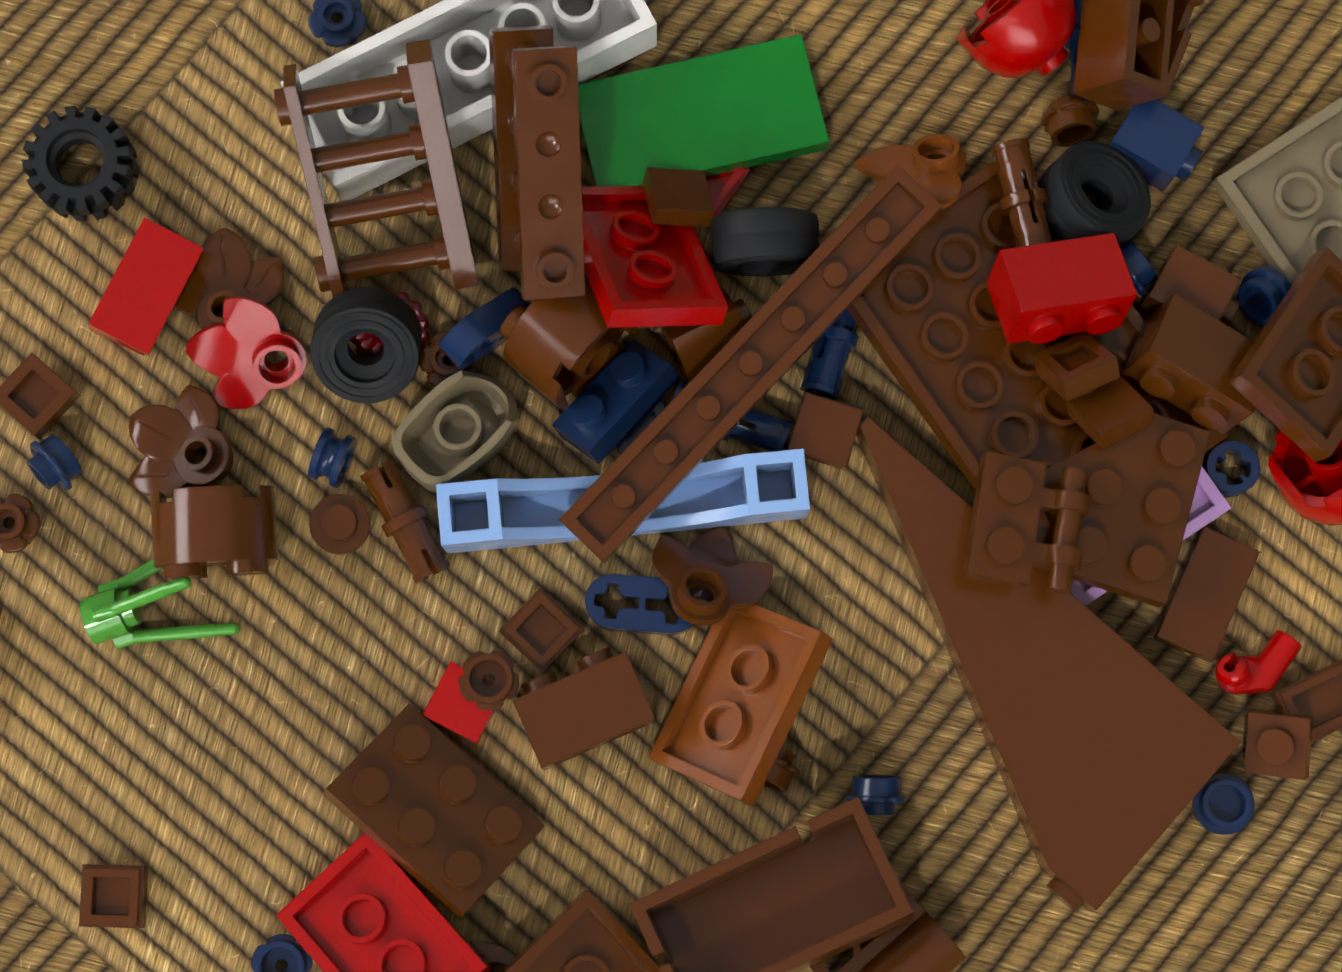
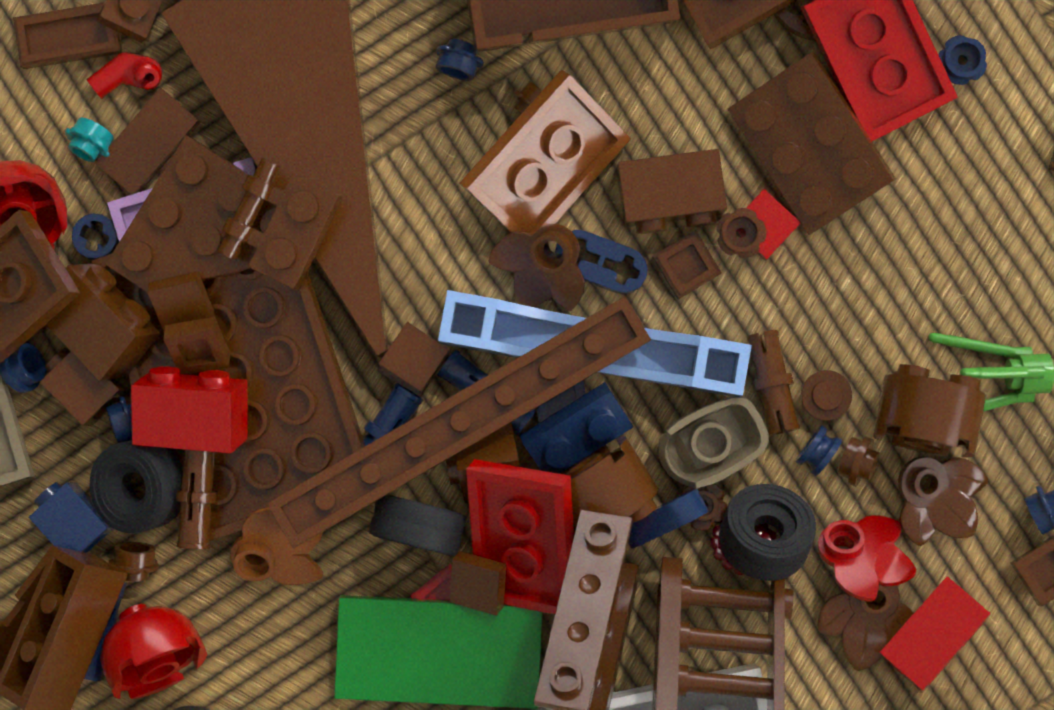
camera: 160 degrees left, 5 degrees up
(283, 458) = (858, 460): none -> reddish brown plate
(1275, 575) = (88, 139): none -> teal plate

